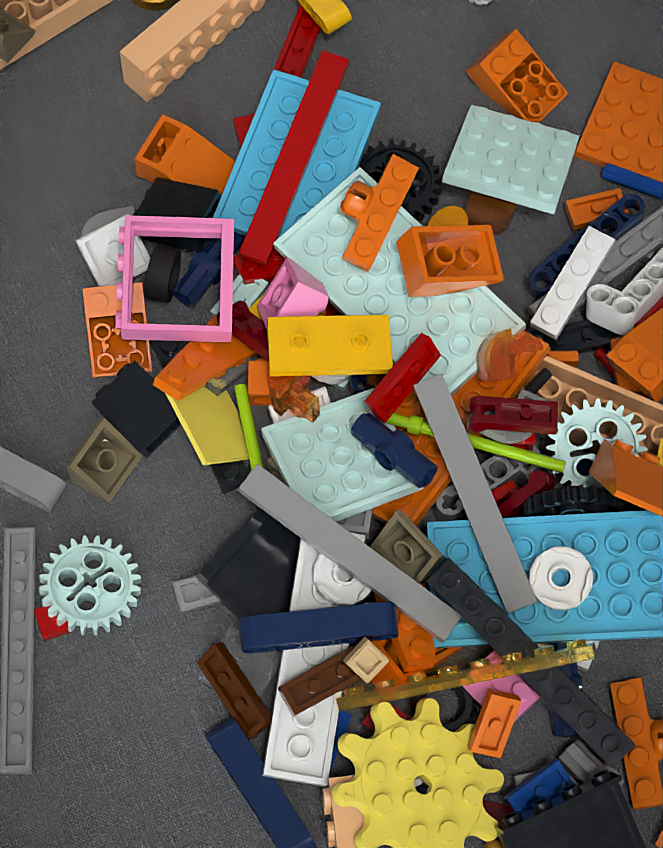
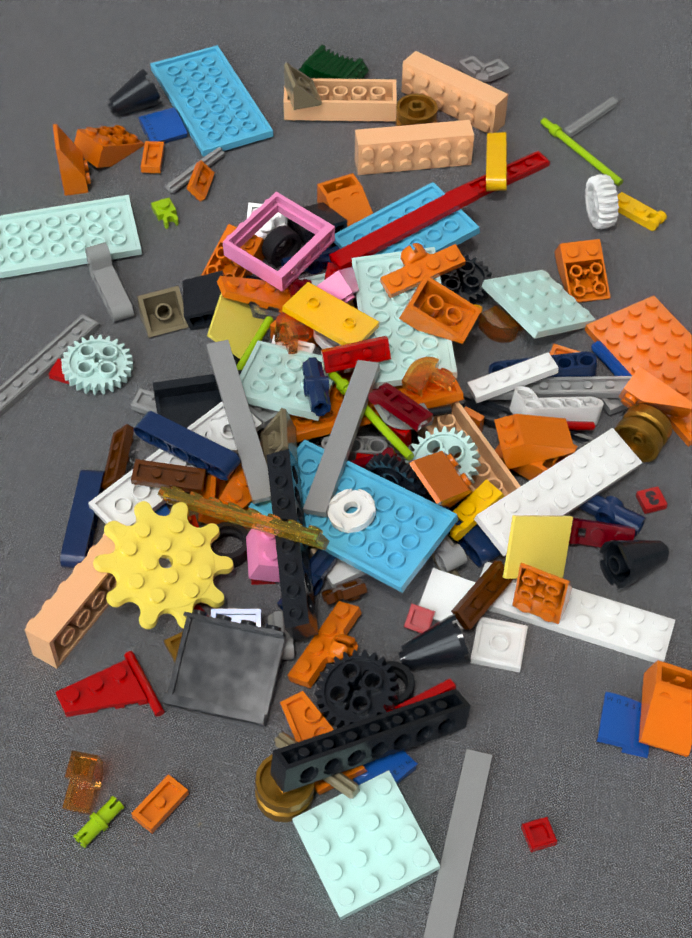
camera: 40 degrees right, 15 degrees down
(366, 660) = (195, 475): tan tile -> none
(494, 723) = (238, 559): orange plate -> none
(608, 665) = (349, 590): none -> reddish brown plate

